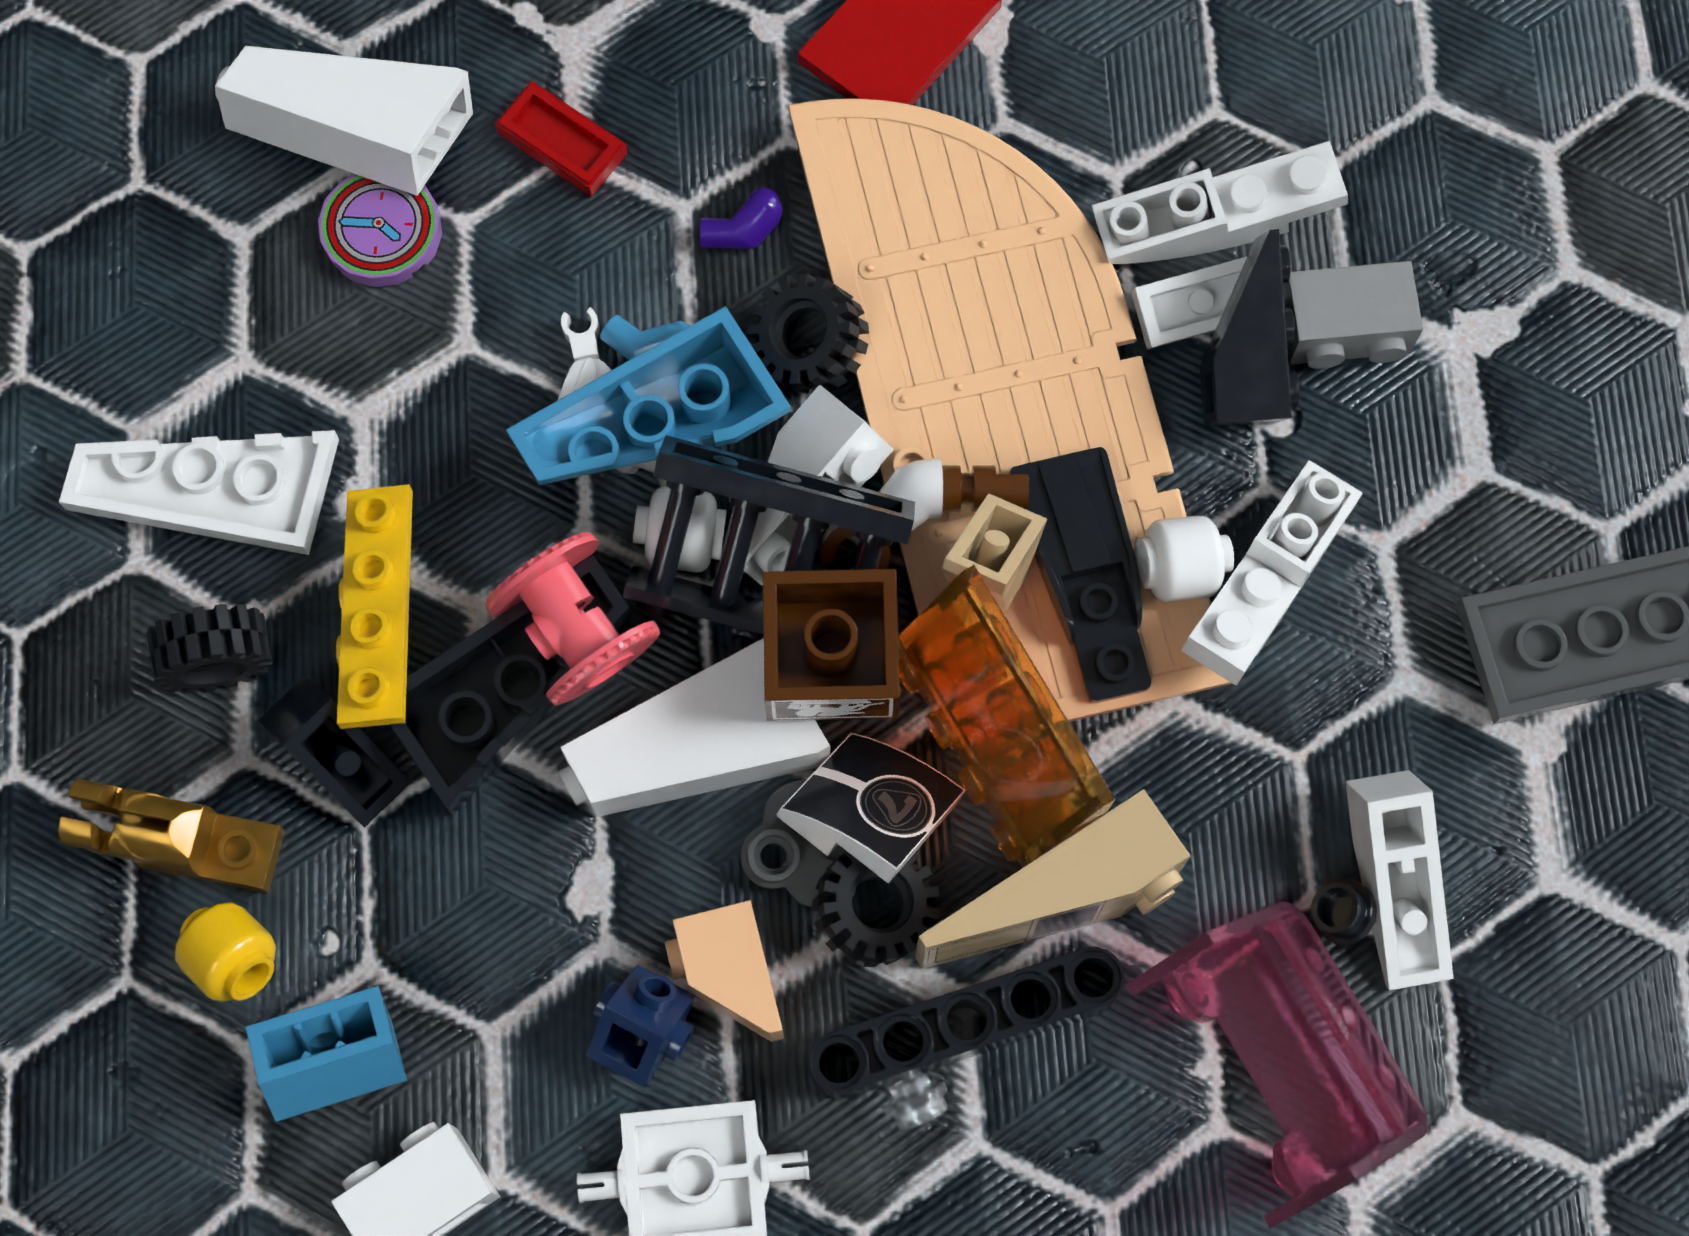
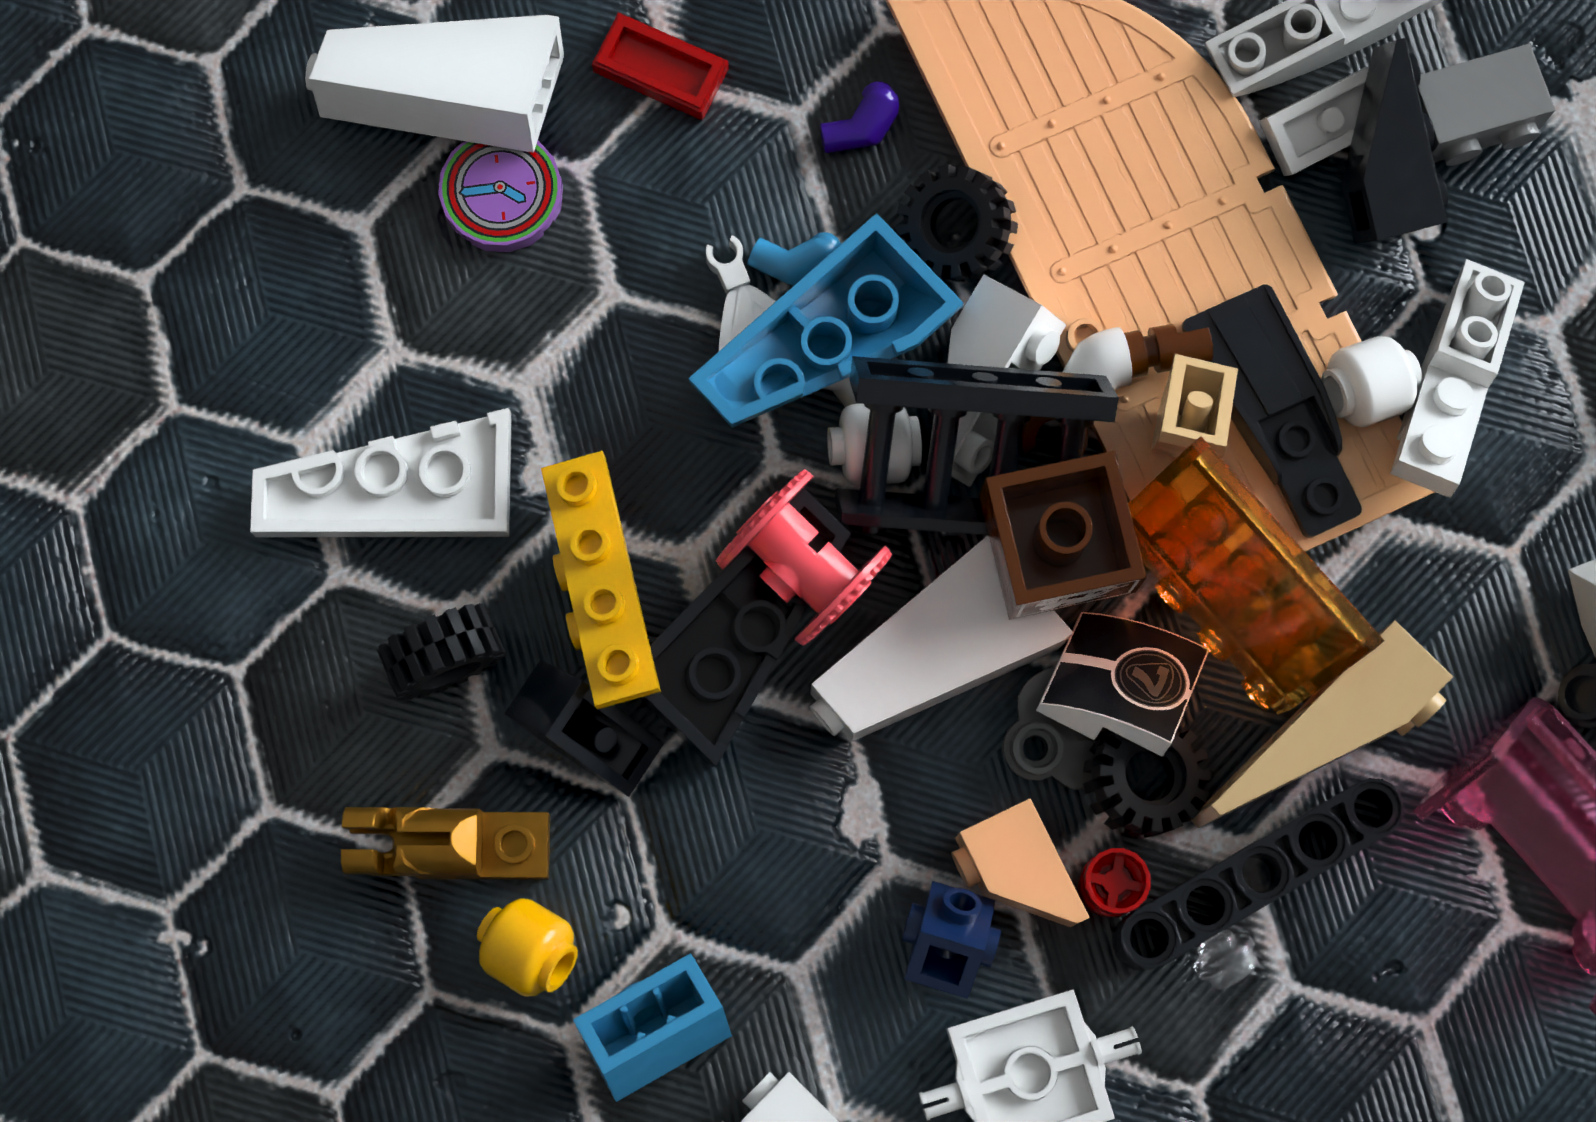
camera: 15 degrees left, 5 degrees up
(821, 991) = (1122, 877): none -> red wheel

